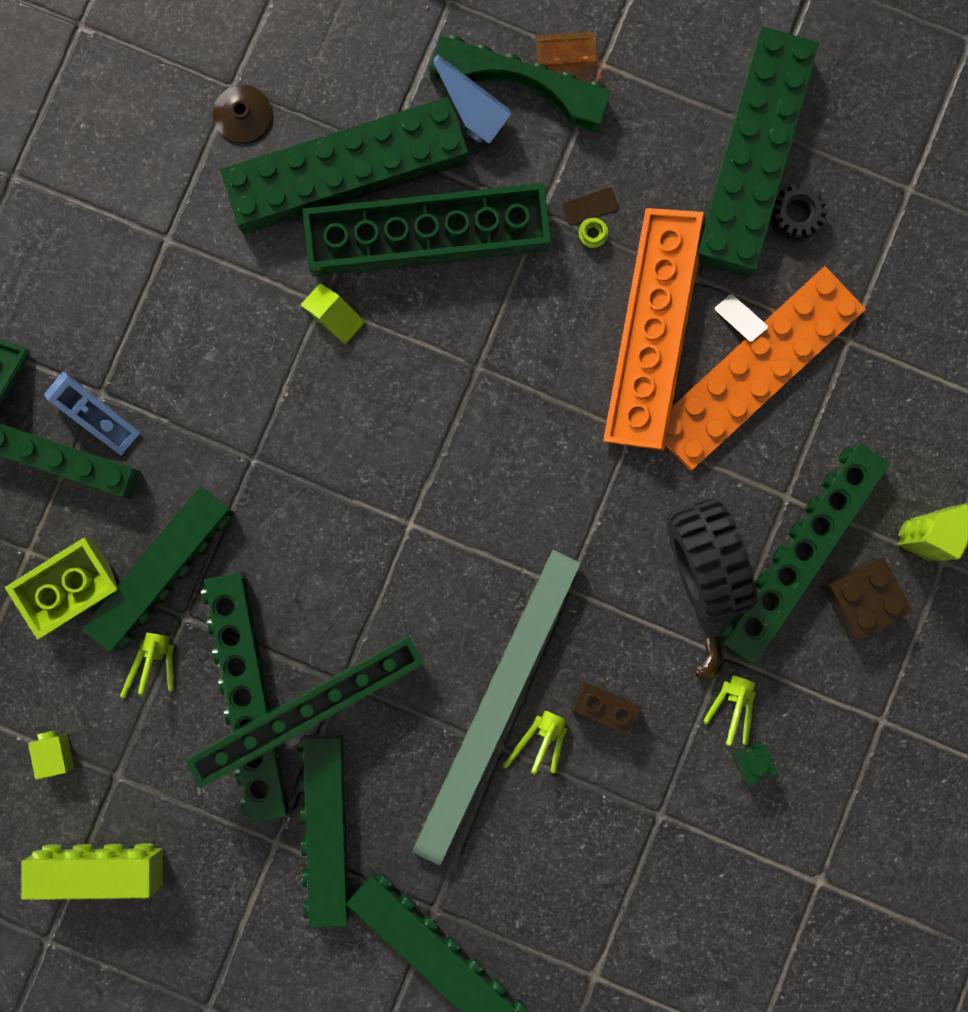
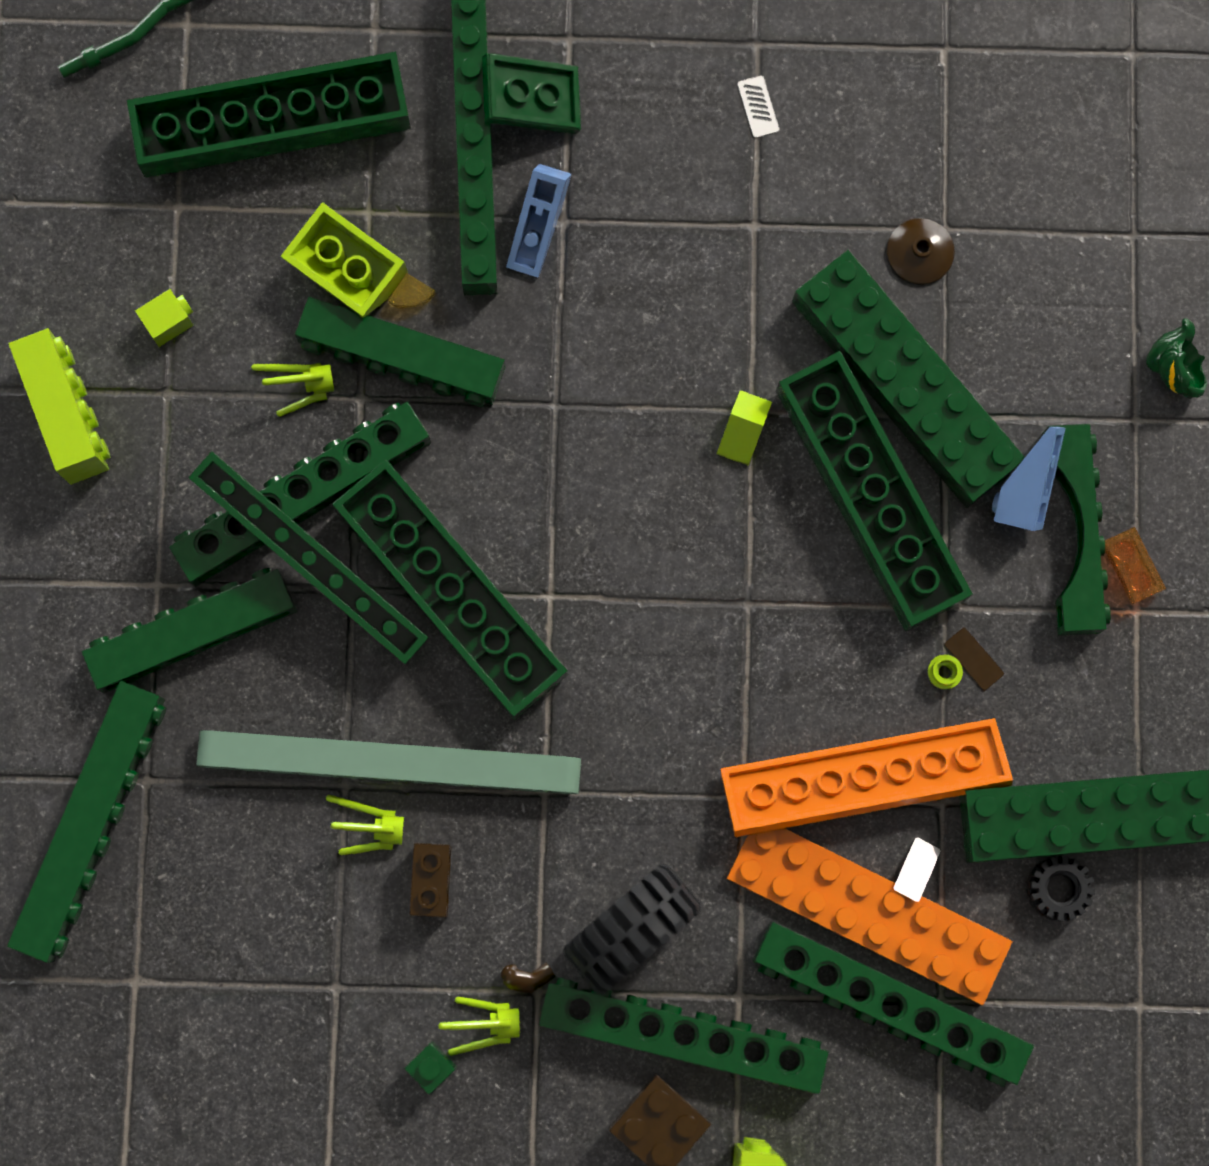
camera: 70 degrees right, 5 degrees down
(67, 196) = (758, 106): none -> white sticker
(112, 542) = (411, 293): none -> clear yellow tile
(373, 603) = (450, 589): none -> dark green brick
(911, 301) = (1011, 1051): none -> dark green brick

